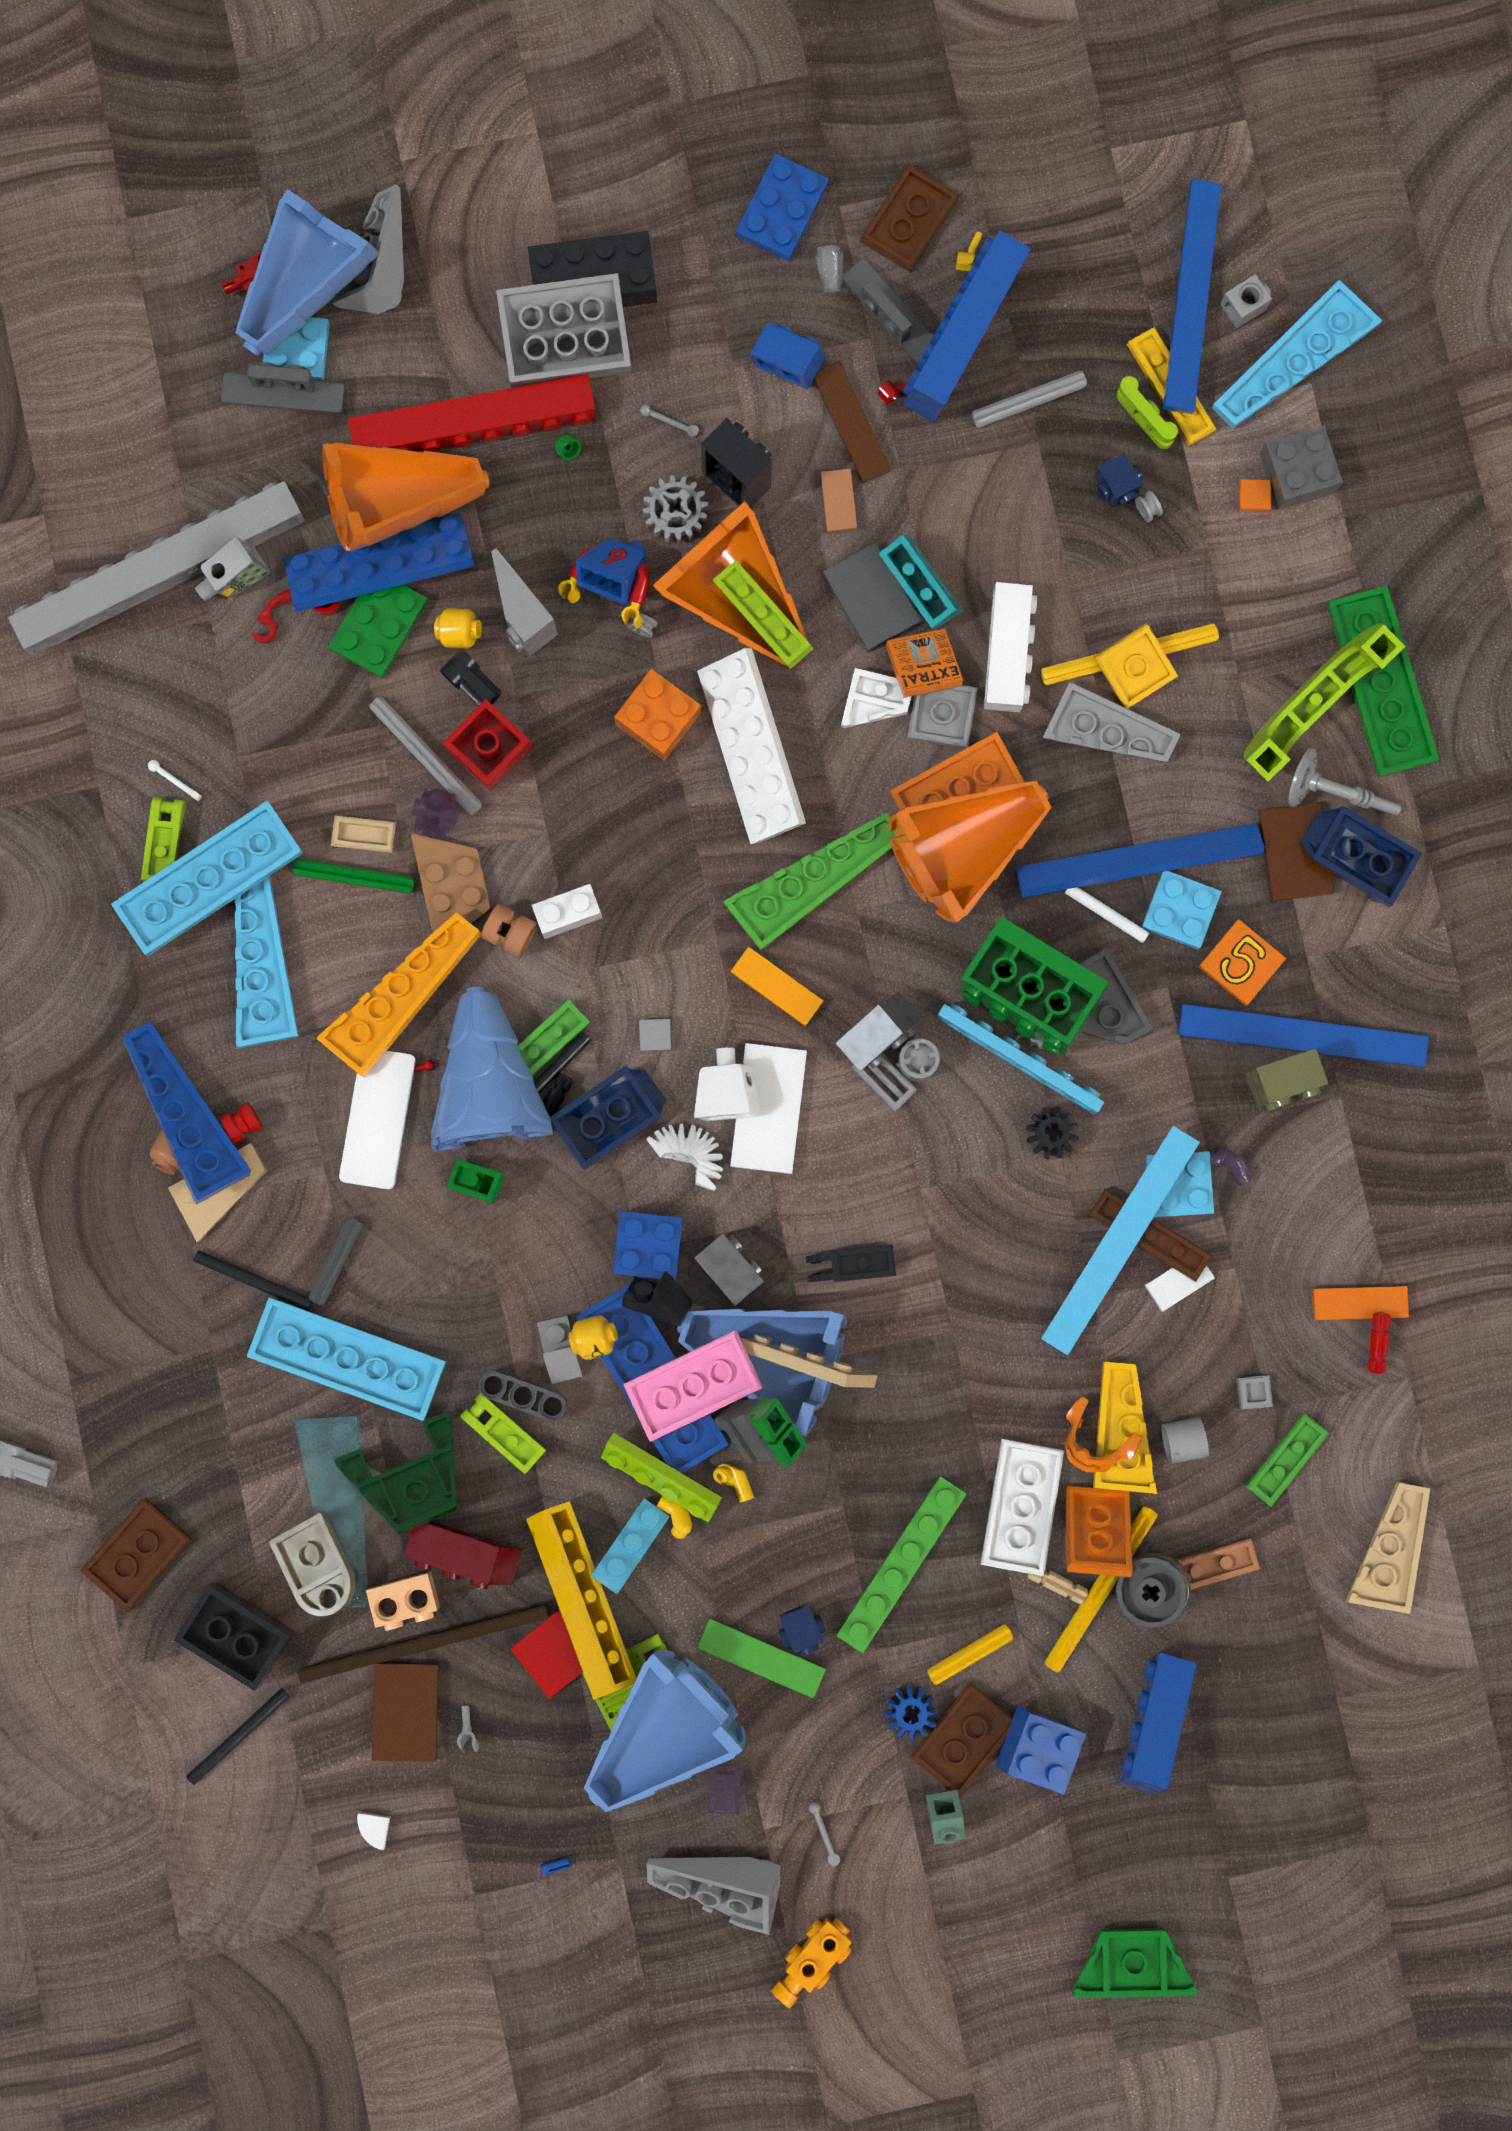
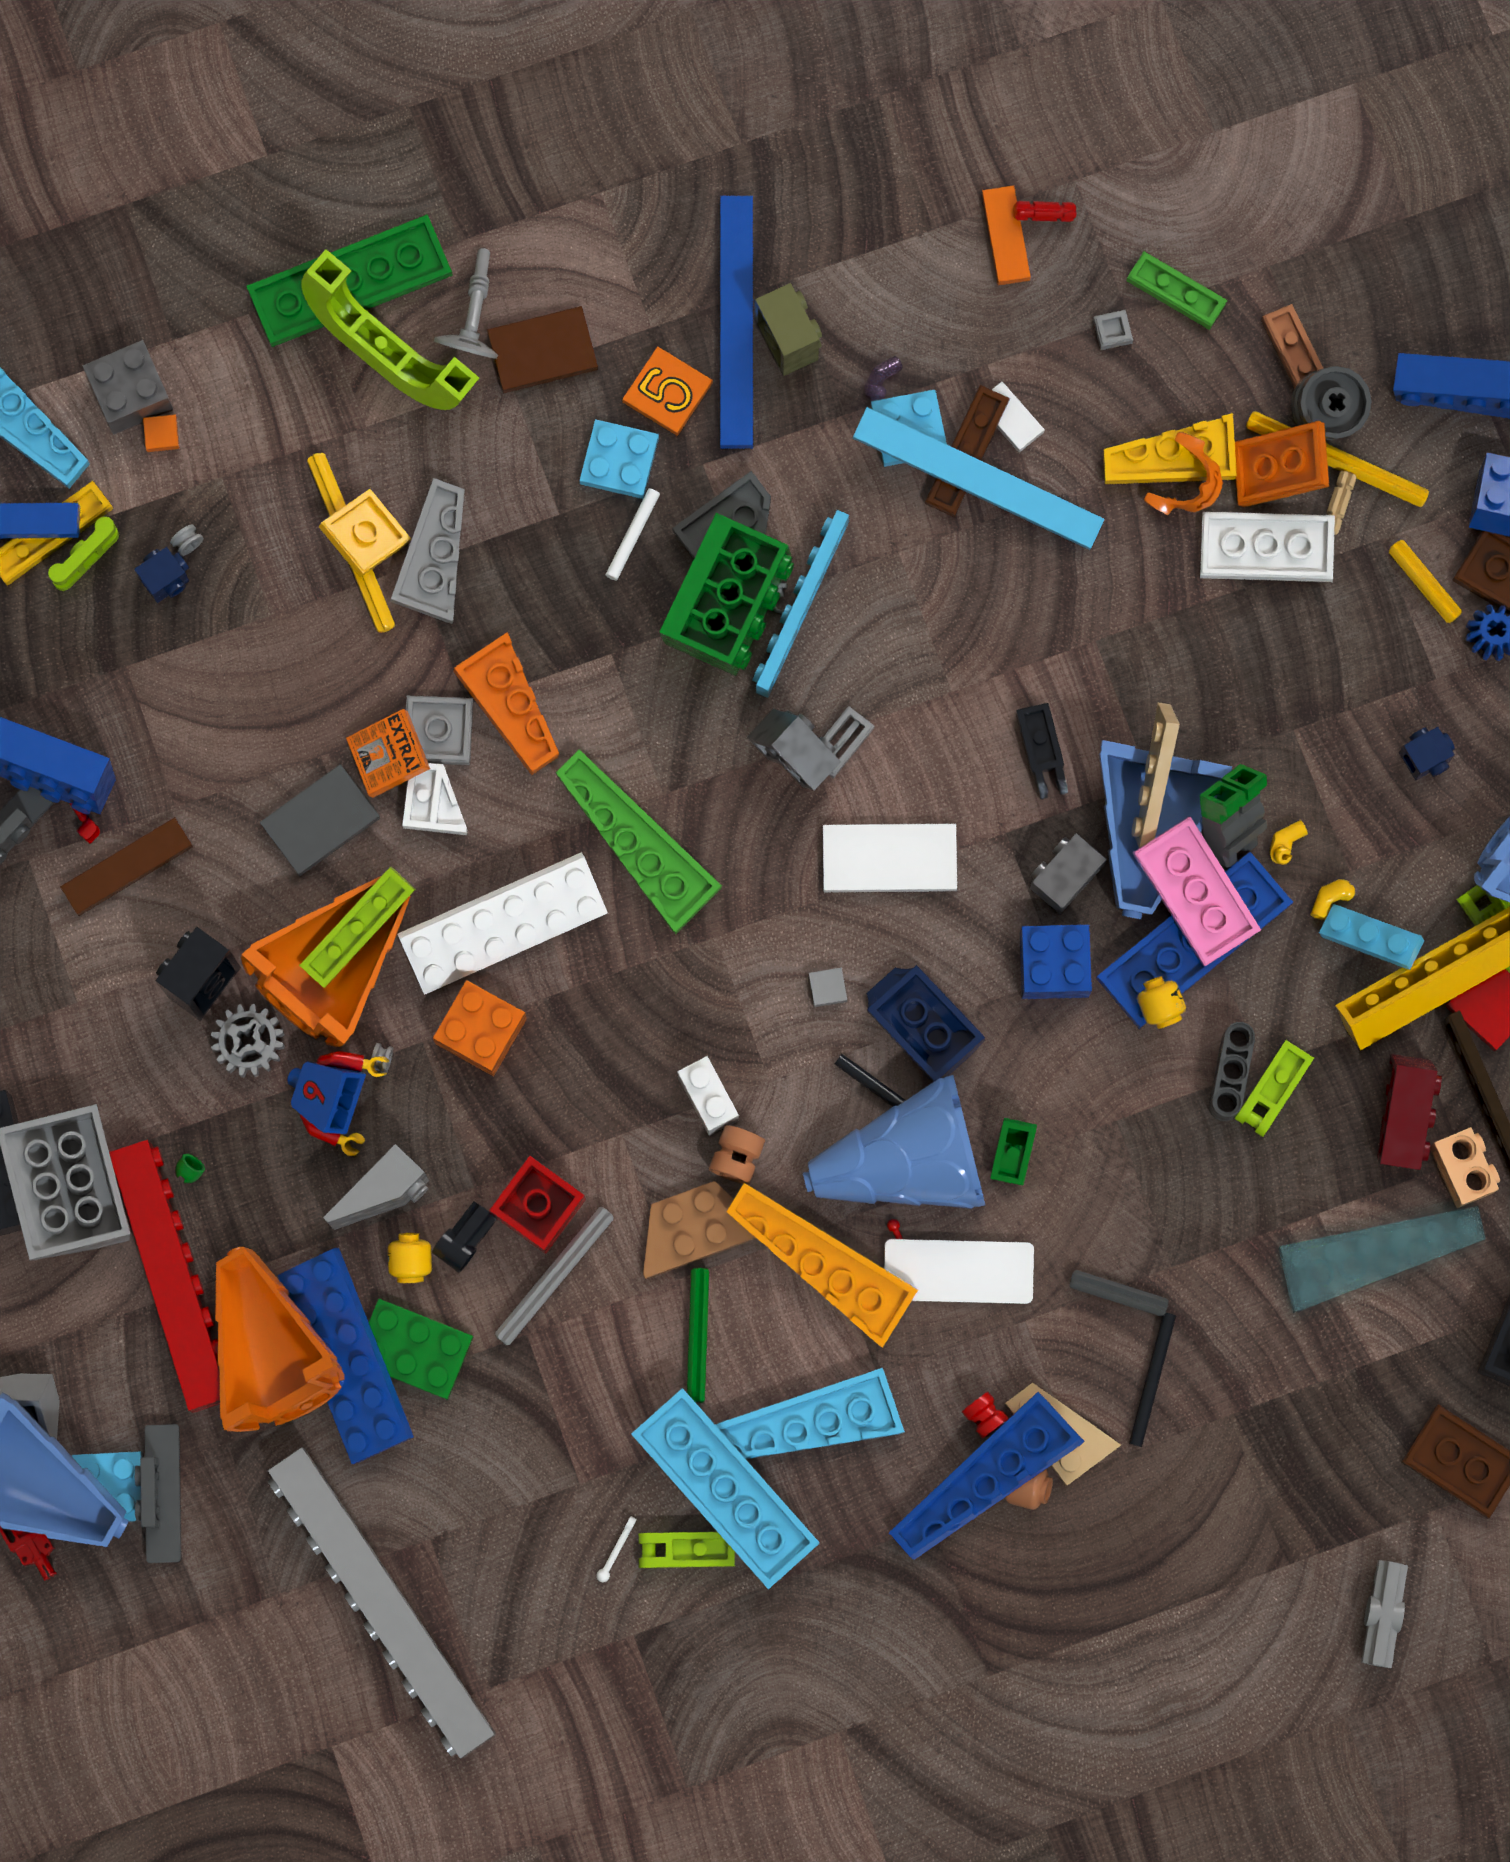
camera: 95 degrees left, 5 degrees down
(231, 570) = (365, 1506): light grey torso -> none
(283, 598) = (418, 1475): red piece -> none
(313, 1564) = (1441, 1265): tile -> none
(346, 1359) = (1221, 1265): medium azure plate -> none
(363, 834) = (650, 1330): tan tile -> none
(414, 1490) = (1351, 1169): dark green wing -> none
(435, 813) = (619, 1252): clear purple brick -> none
(552, 1036) = (844, 1094): bright green plate -> none
(556, 1094) = (907, 1083): black axle -> none
(558, 1355) = (1176, 1042): light grey slope -> none
(661, 1300) = (1113, 939): black slope -> none
(661, 1477) = (1295, 916): lime plate -> none
(689, 1150) = (945, 931): white hair -> none
(692, 430) = (155, 1037): light grey hinge -> none
(726, 1090) = (877, 900): white torso -> none
(761, 1658) = (1463, 791): bright green tile -> none
(776, 986) = (757, 866): light orange tile -> none
(788, 355) = (61, 940): blue brick -> none
(838, 501) = (217, 868): nougat tile -> none
(901, 1564) = (1344, 662): bright green plate -> none
(918, 1060) = (819, 704): light grey piece -> none
(920, 581) = (300, 766): teal brick -> none
(965, 842) = (583, 683): orange cone -> none
(1009, 646) = (359, 667): white brick -> none
(1029, 399) = (80, 680): light grey axle -> none
(1060, 1127) = (887, 563): black gear -> none
(1139, 860) = (573, 507): blue tile -> none
(1185, 1440) = (1174, 391): light grey piece -> none
(1360, 853) = (538, 282): dark blue slope -> none
(1392, 1559) = (1260, 176): tan wing -> none

